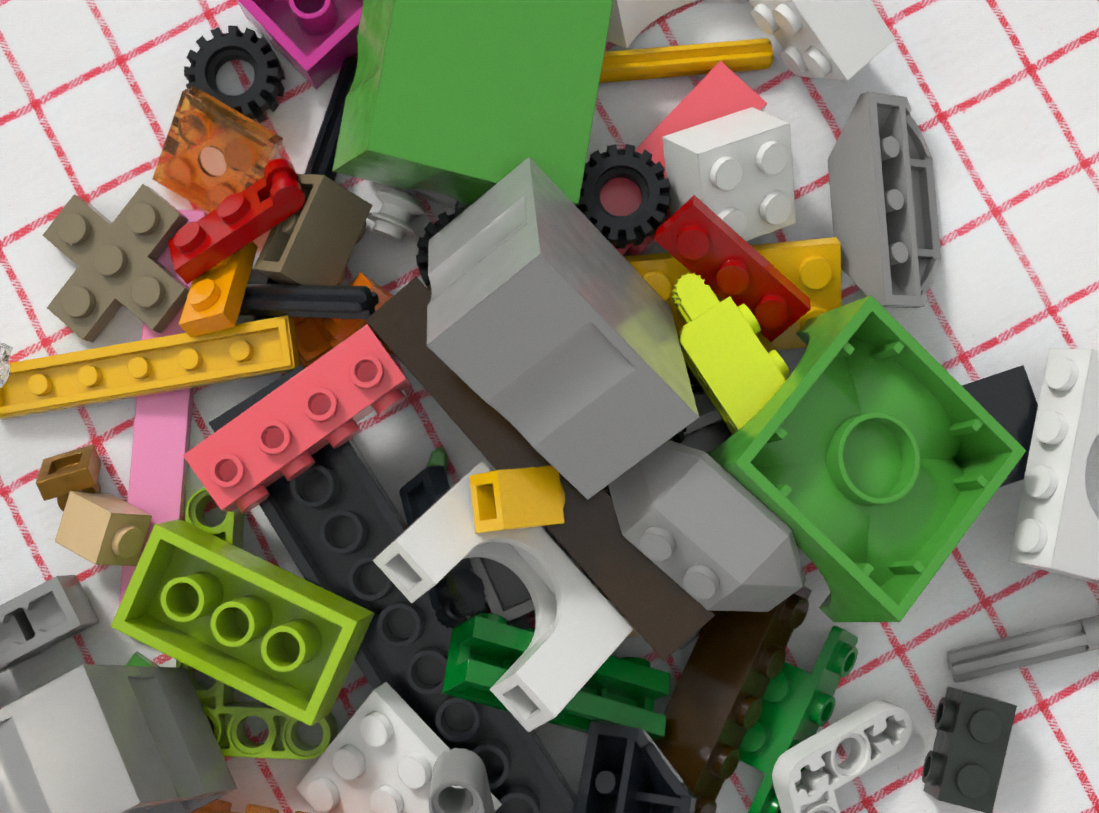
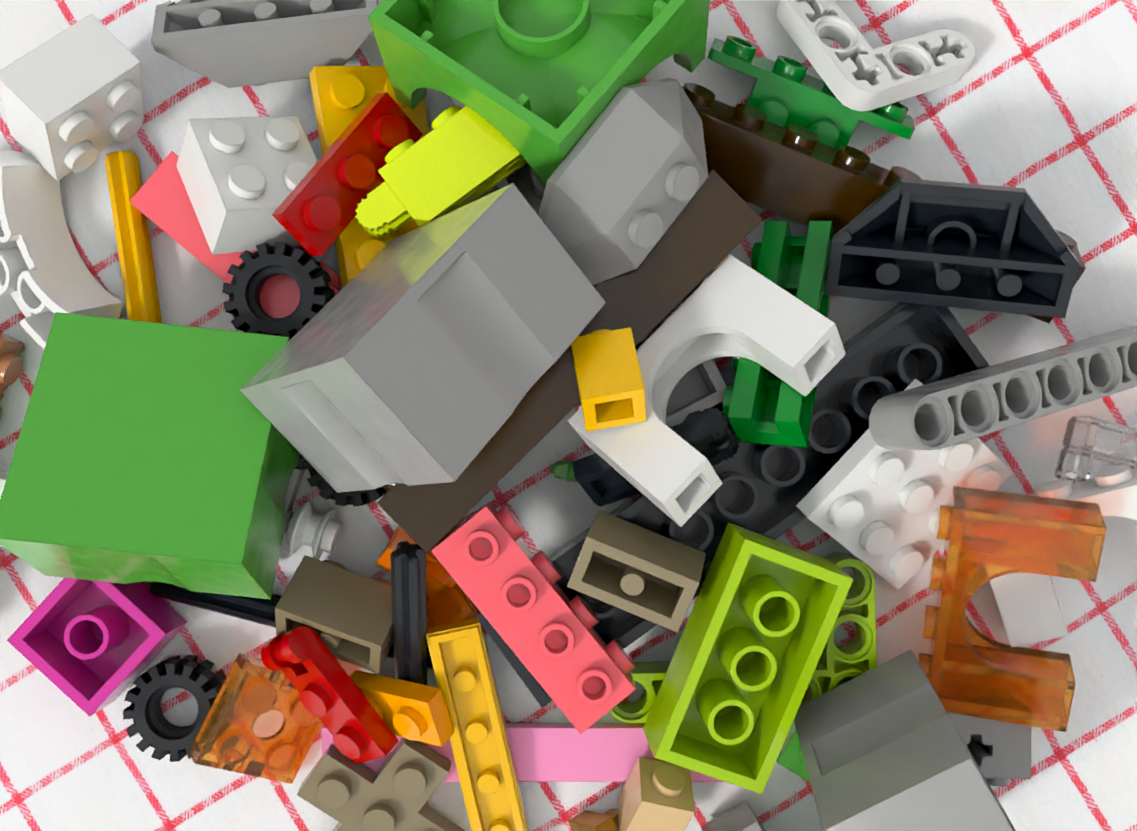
camera: 90 degrees left, 5 degrees up
(334, 519) = (638, 571): none -> dark tan brick

